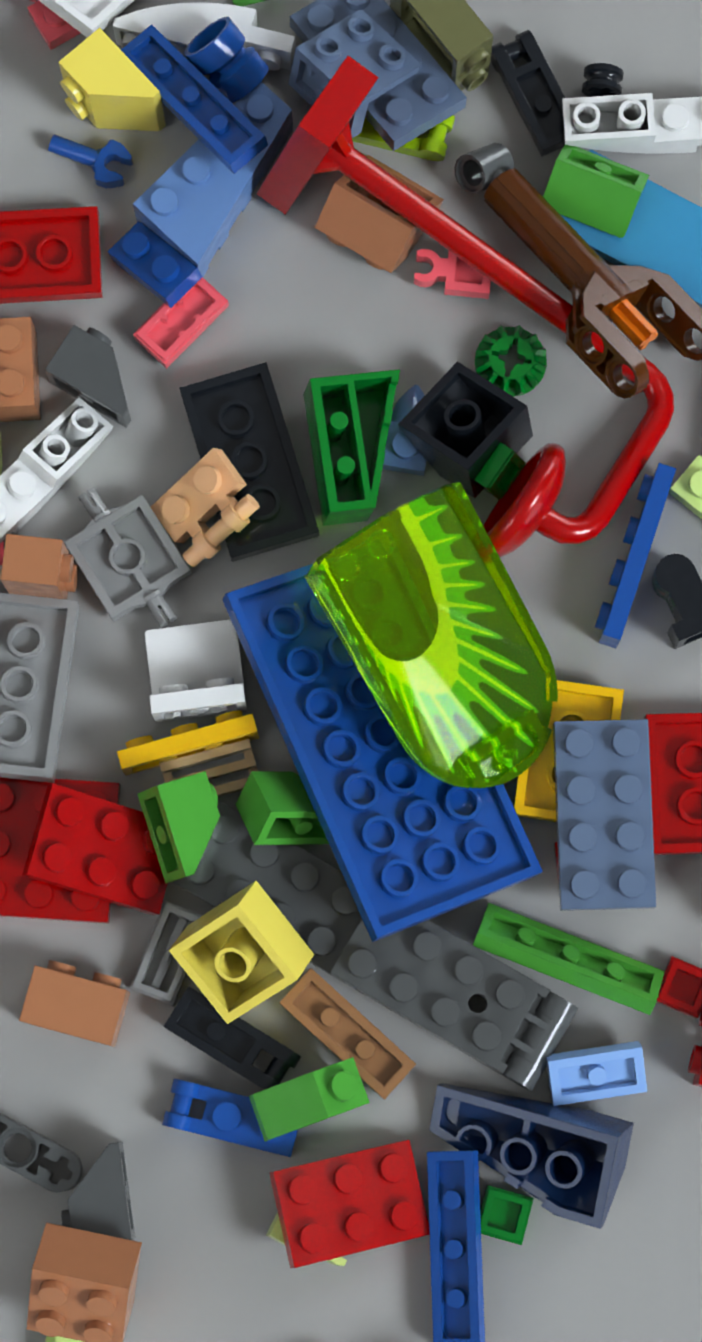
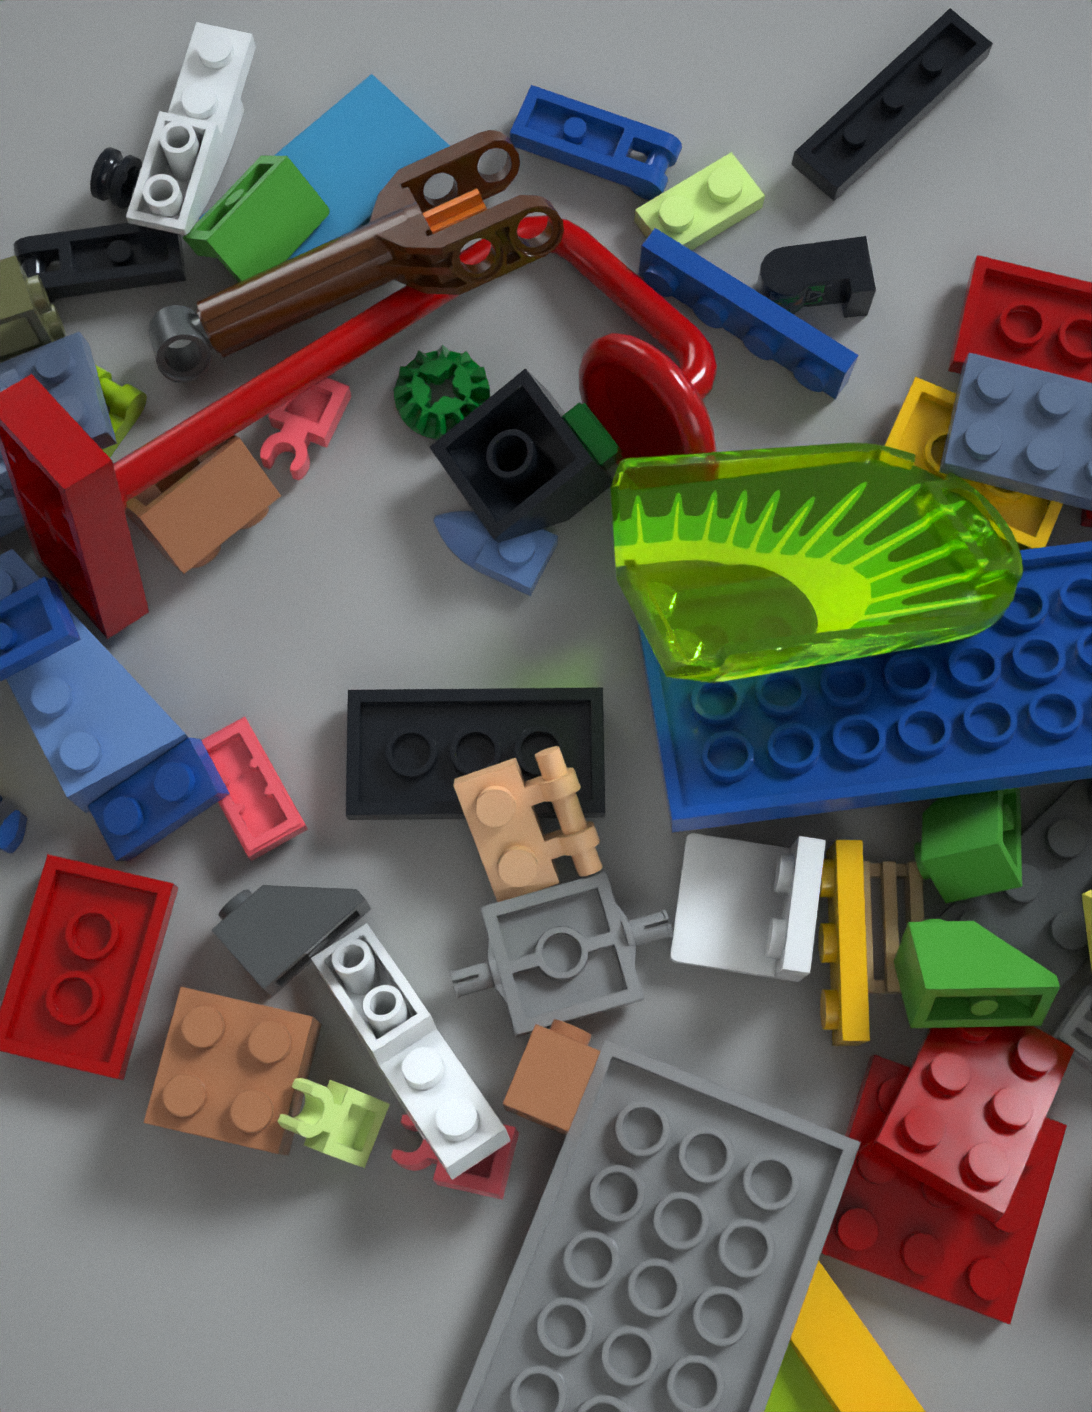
camera: 75 degrees left, 5 degrees down
(348, 440) = (496, 613): green wedge -> none

